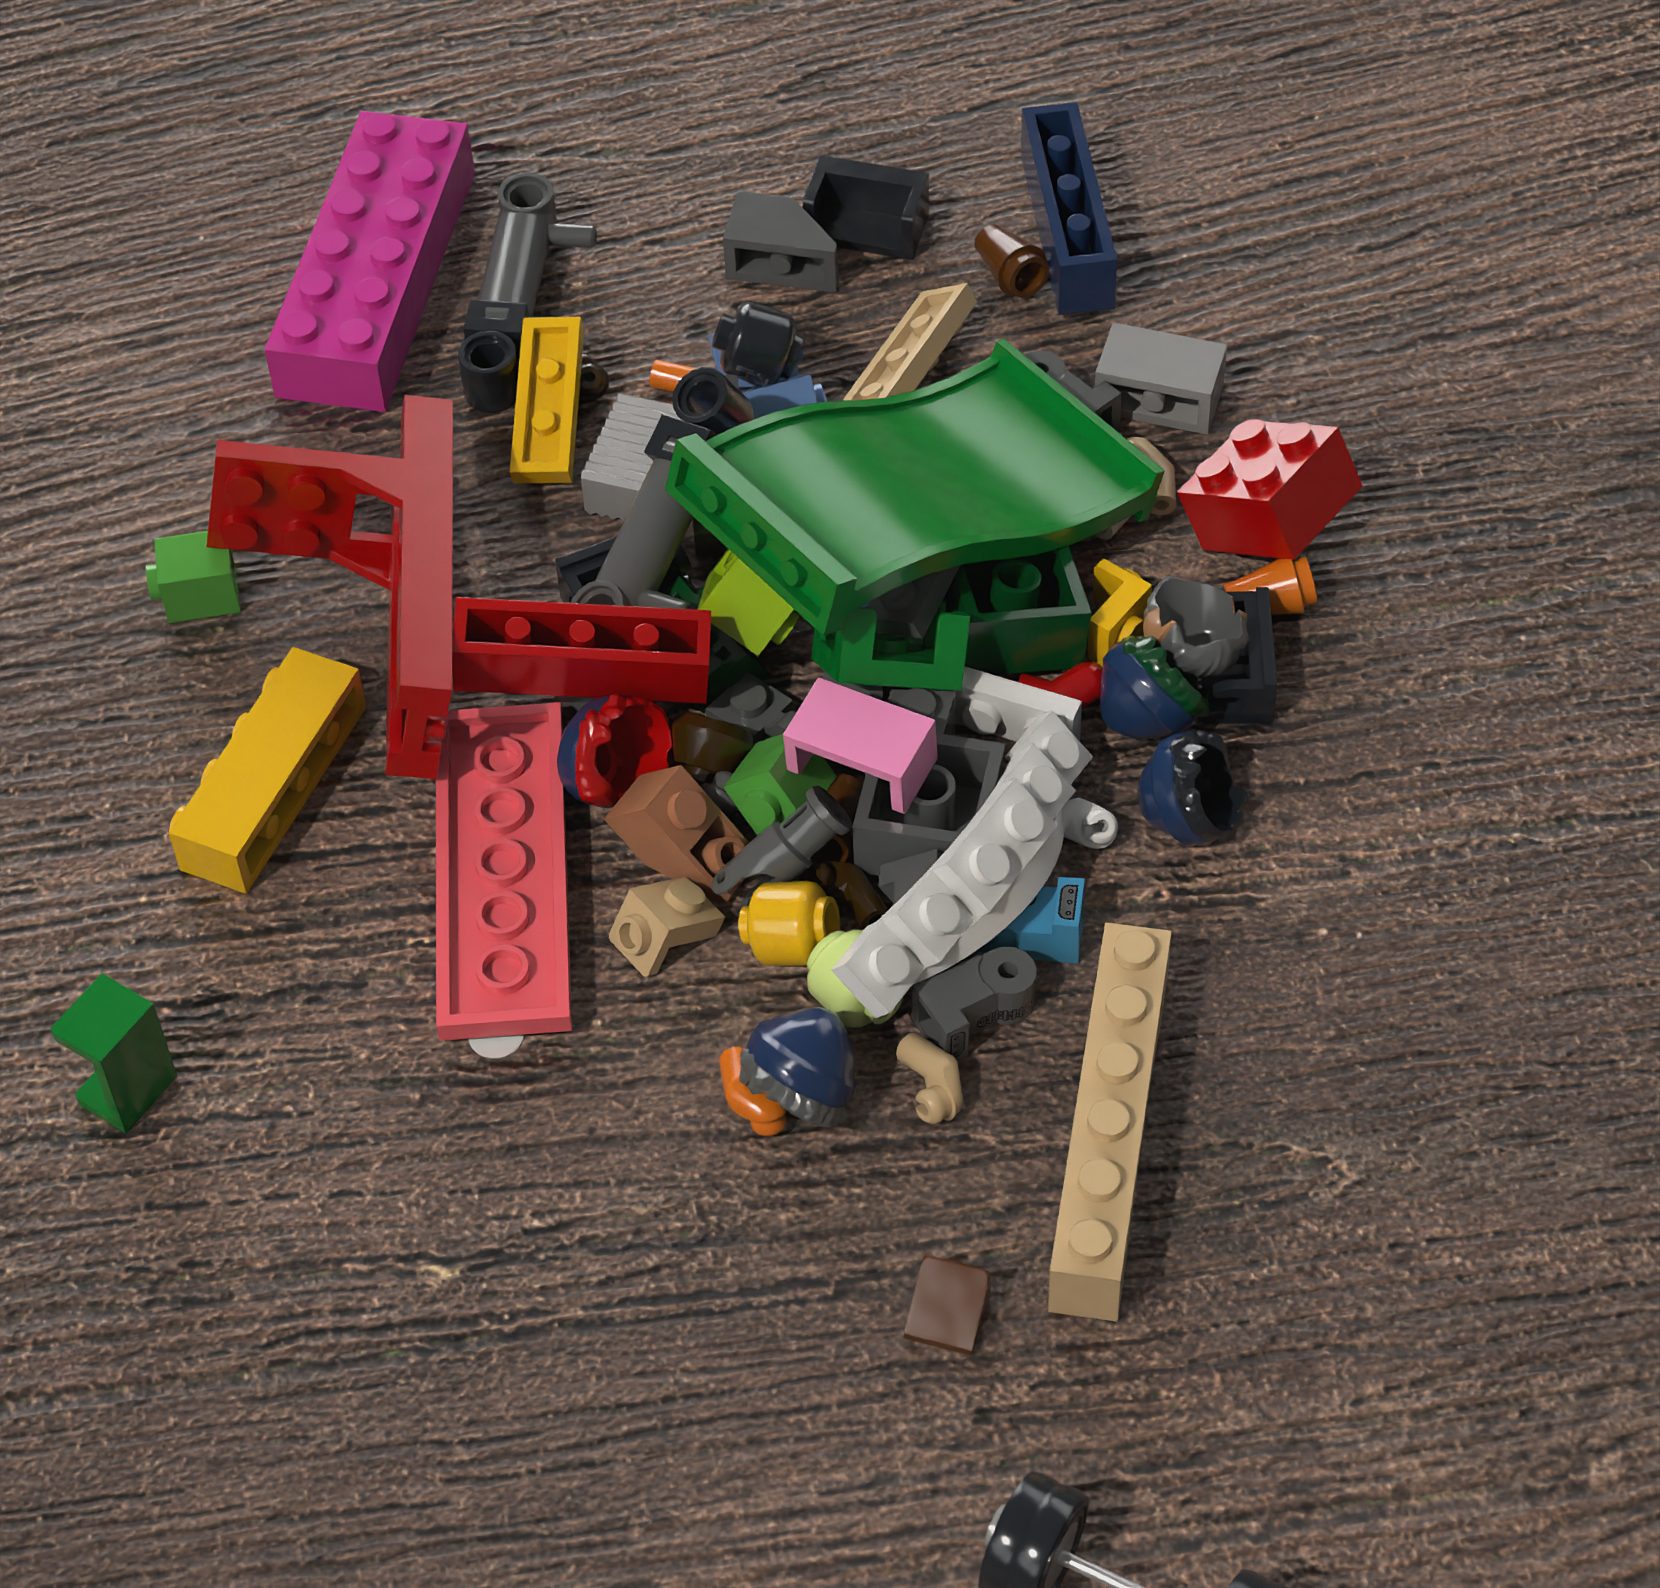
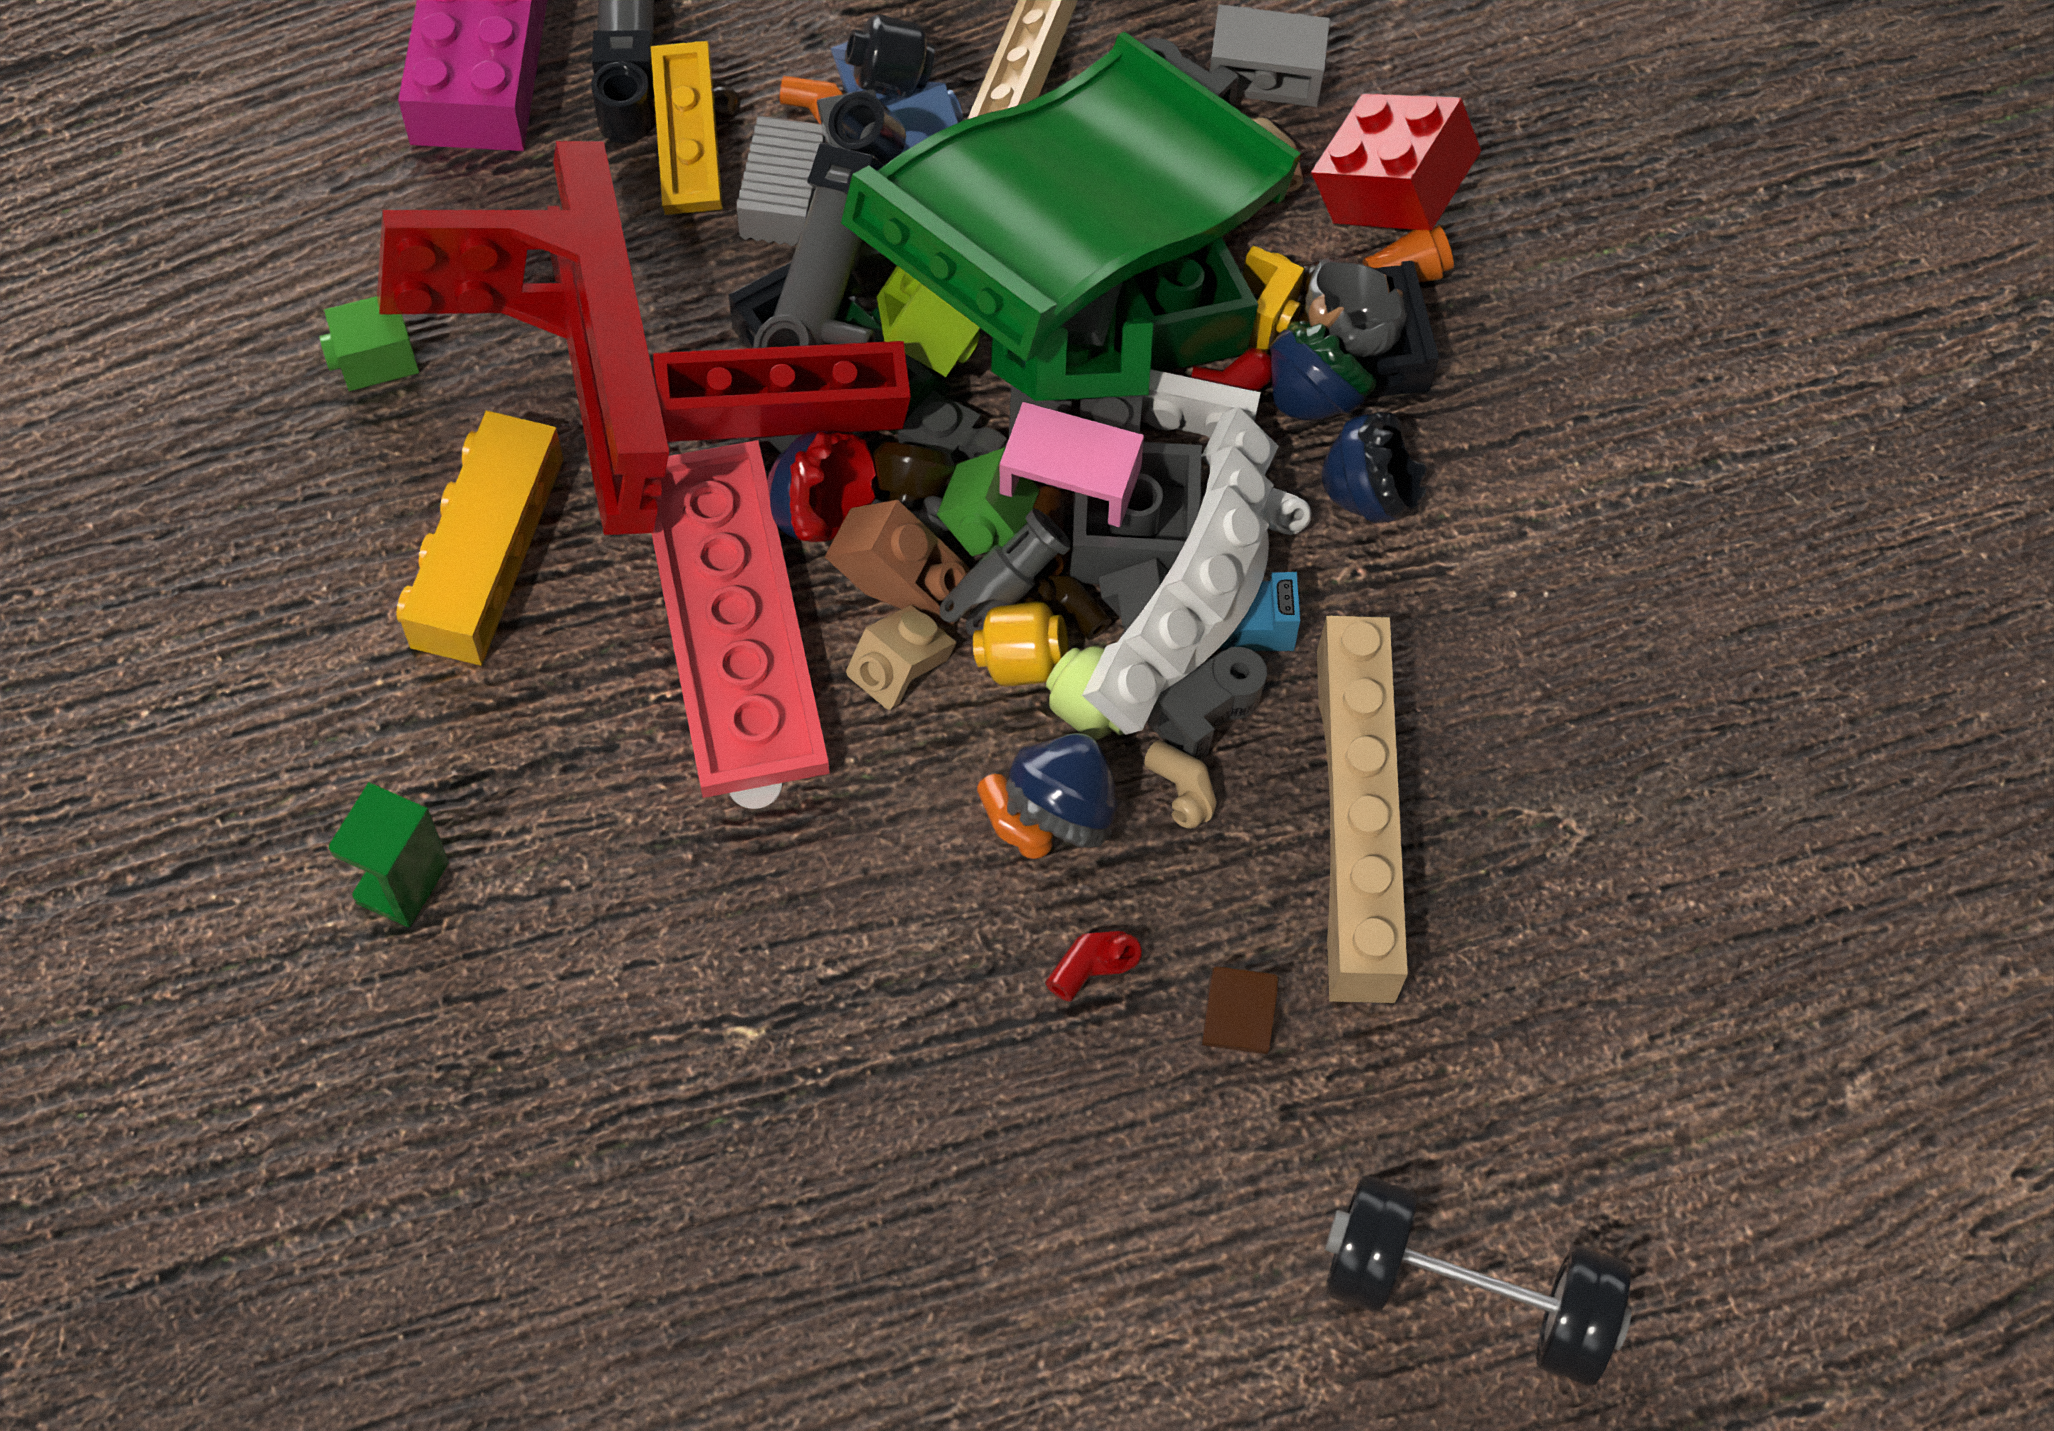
camera: 15 degrees left, 10 degrees up
(805, 1235) = (1093, 956): none -> red arm

